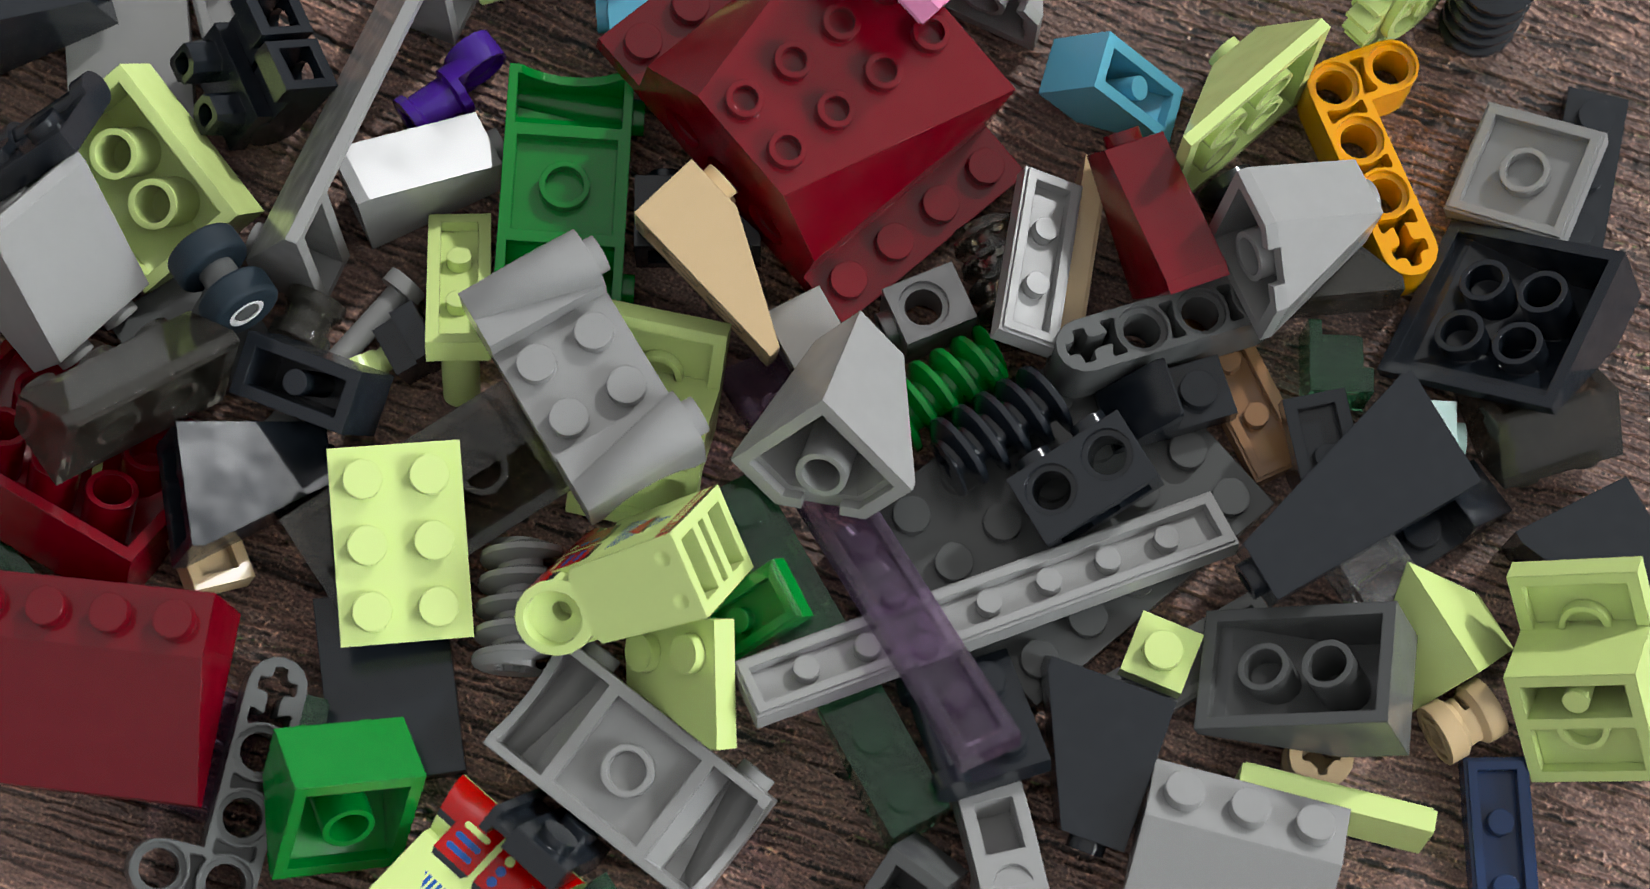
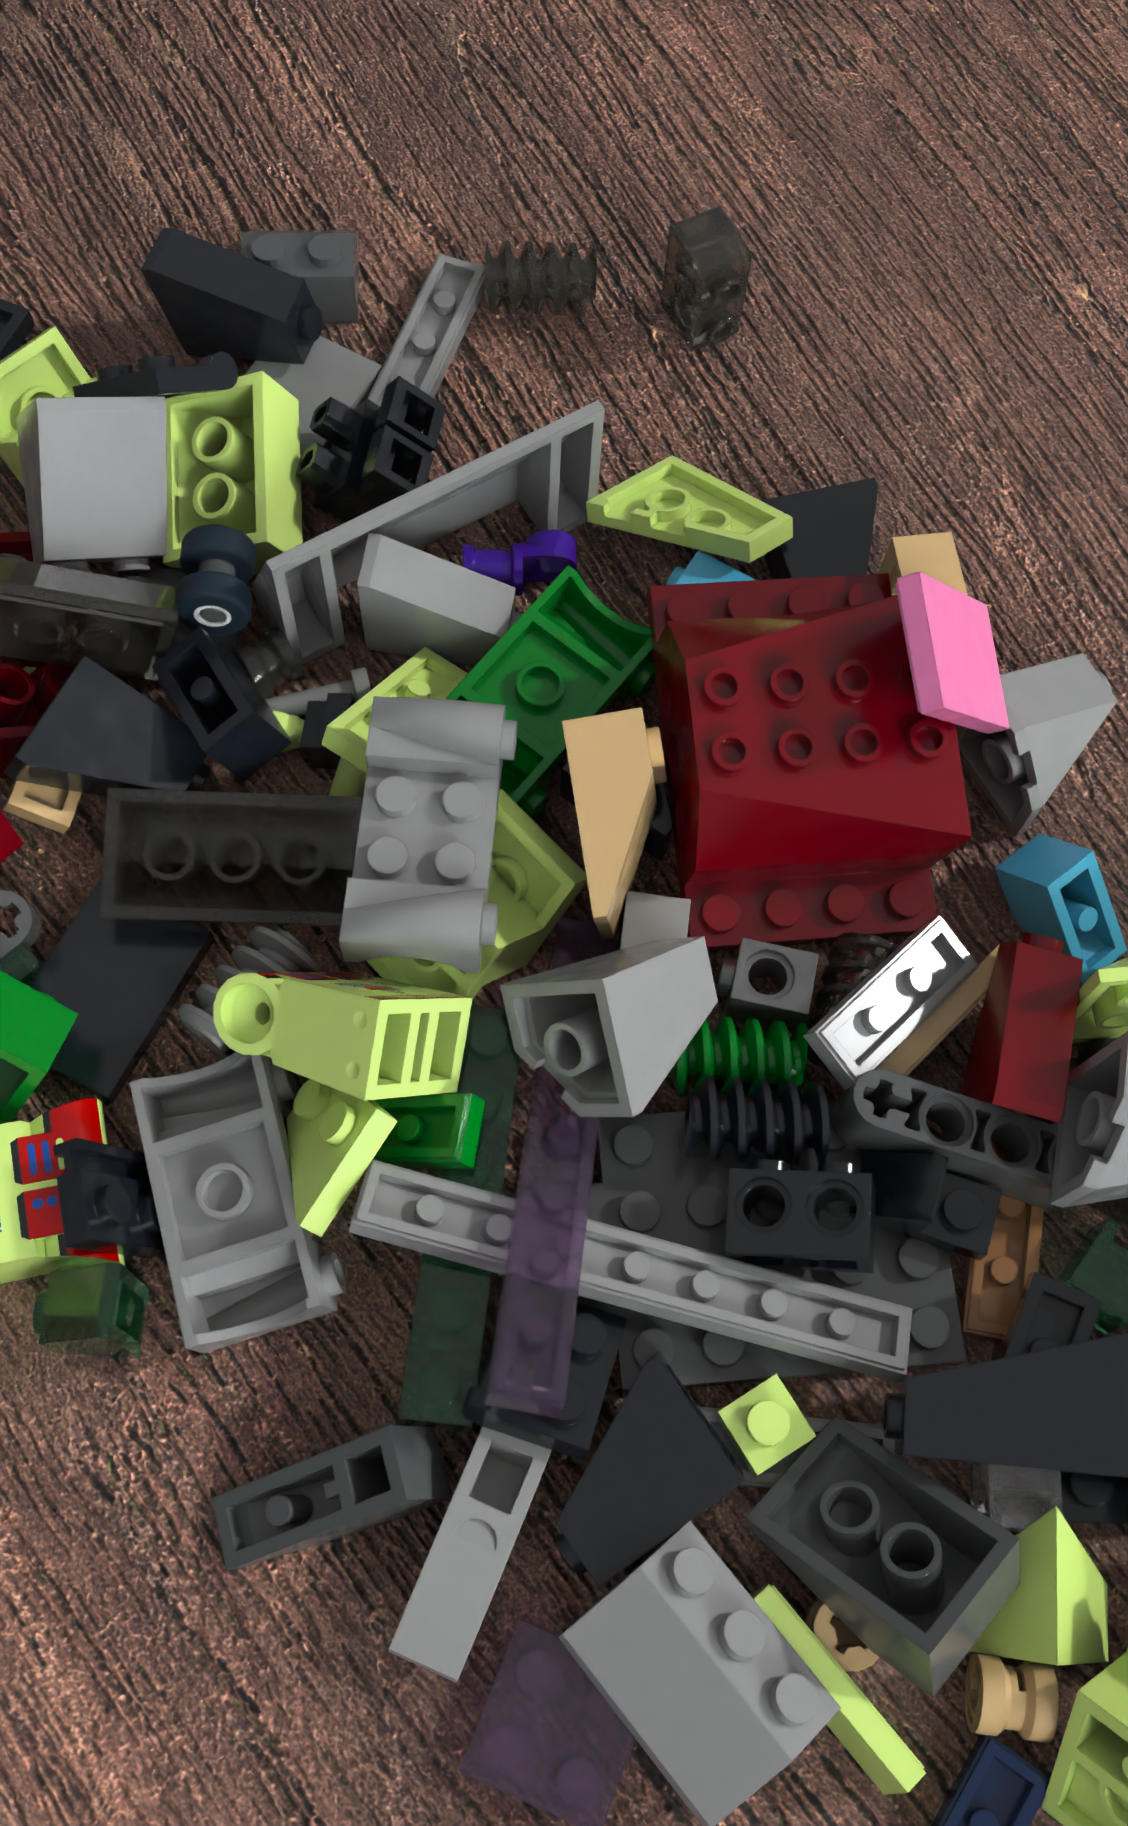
camera: 35 degrees right, 5 degrees down
(400, 543) = (186, 872): yellowish green plate -> none

